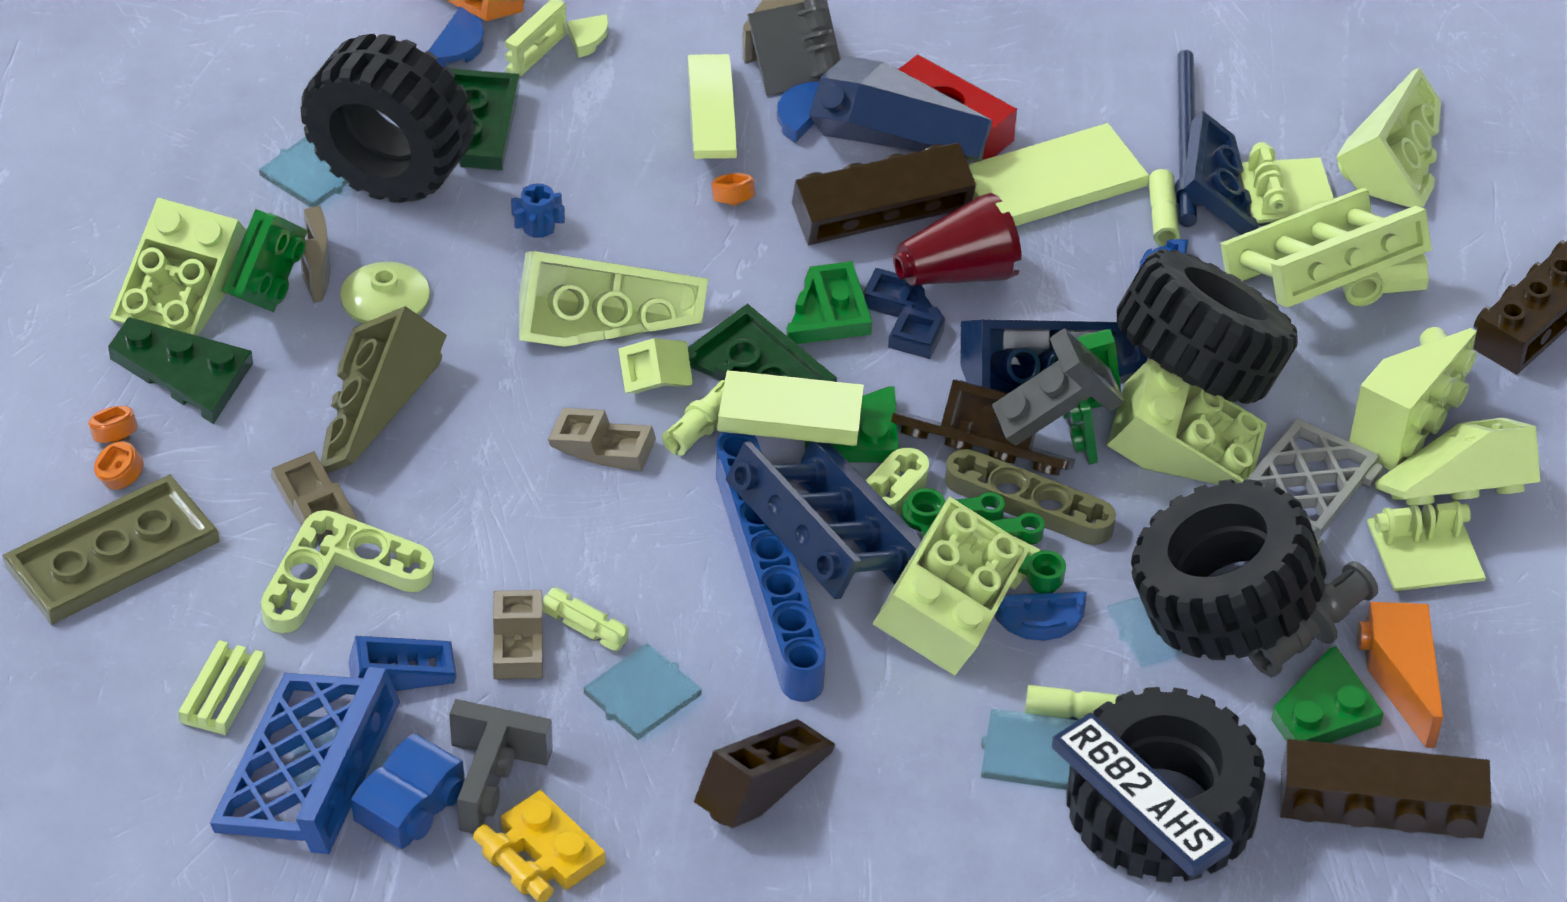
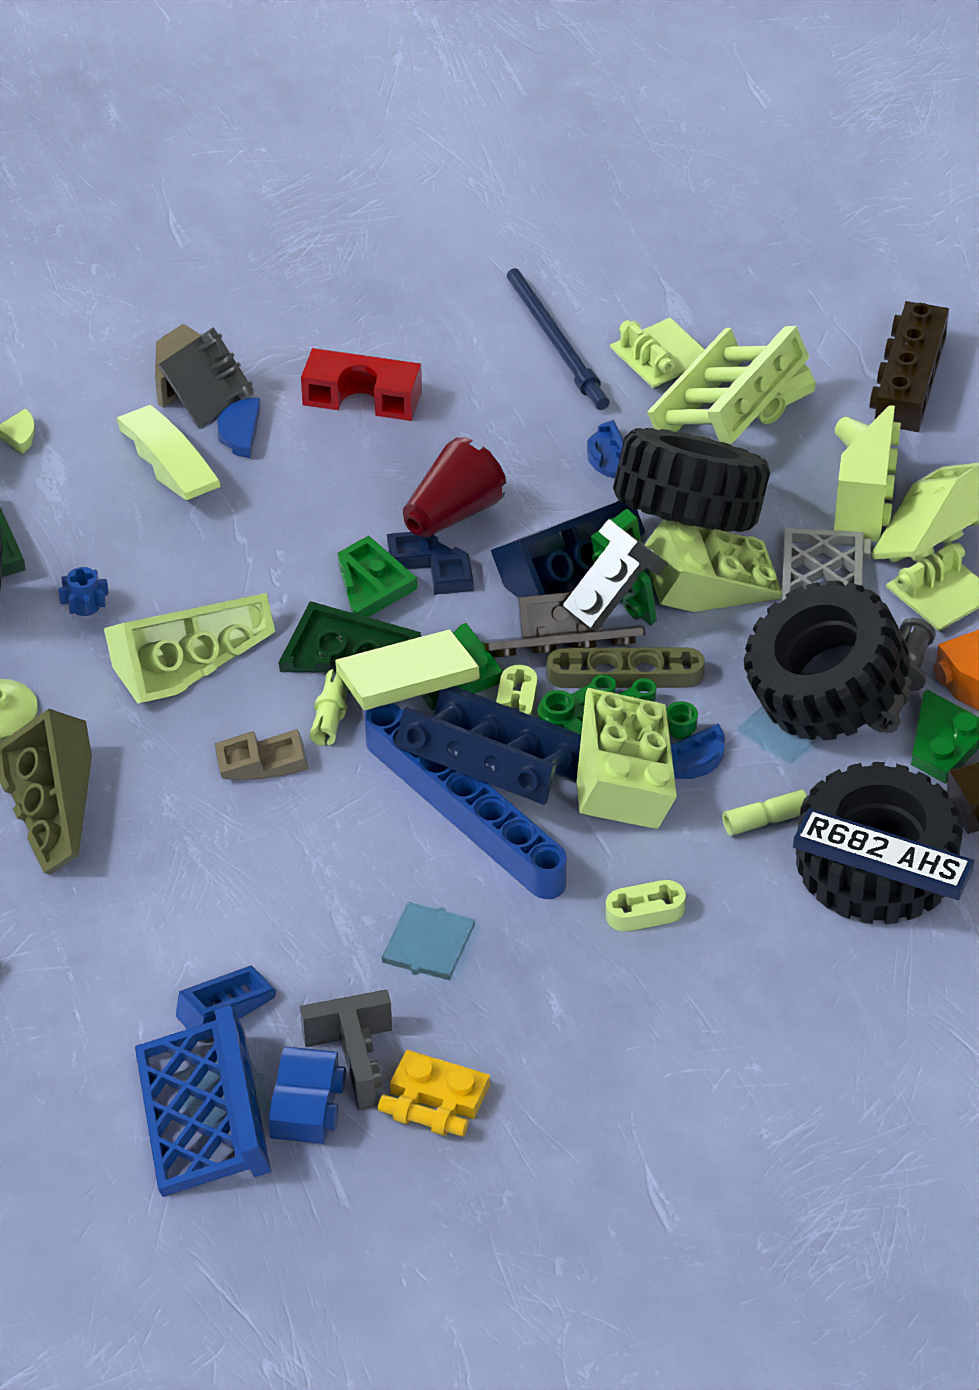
camera: 25 degrees left, 0 degrees up
(234, 658) = (87, 1052): yellowish green tile -> none
(309, 489) = (56, 899): dark tan slope -> none
(339, 551) = (114, 930): yellowish green beam -> none
(517, 634) = (300, 937): dark tan slope -> none
(585, 619) = (347, 903): yellowish green axle -> none
(655, 365) = (267, 680): yellowish green panel -> none
(733, 188) = (229, 513): orange tile -> none
(759, 771) = (568, 963): dark brown slope -> none
(882, 193) = (356, 471): dark brown brick -> none
(884, 747) = (645, 905): none -> yellowish green beam
(889, 108) = (314, 401): dark blue wedge -> none
(1021, 749) = (751, 861): clear light blue piece -> none
(1060, 174) = (475, 405): yellowish green tile -> none
(1163, 206) = (579, 403): yellowish green piece -> none
(1213, 174) = (601, 360): dark blue wing -> none
(1393, 145) = (718, 288): yellowish green wedge -> none

